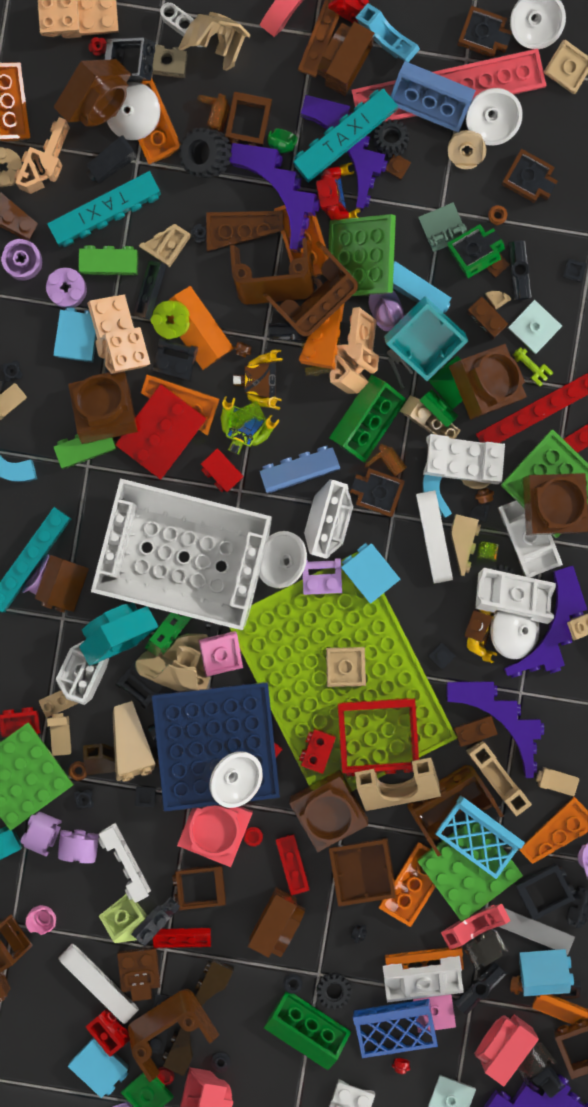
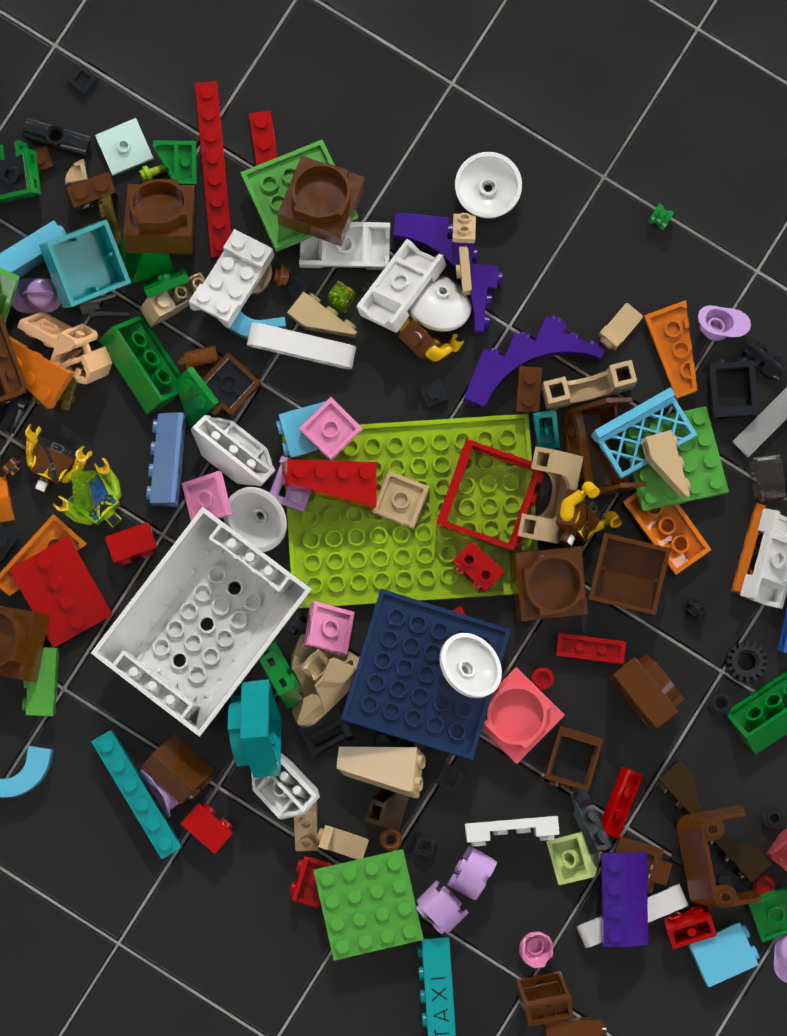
camera: 65 degrees left, 5 degrees down
(26, 625) = (207, 827): none -> red brick
(107, 973) = (624, 899): none -> dark purple slope
(285, 513) = (209, 493): none -> bright pink plate
(339, 613) = (341, 480): none -> red wedge
(358, 470) = (194, 396): none -> green wing
(376, 589) = (330, 428): none -> bright pink plate
(392, 814) = (581, 517): none -> torso
(449, 757) = (546, 429): none -> teal slope
(466, 860) = (663, 457): none -> tan slope
(476, 337) = (107, 210): none -> clear yellow plate
(476, 924) = (737, 478): coral arch -> none
(541, 375) = (178, 159): none -> green wing
(548, 640) = (463, 270): none -> tan plate

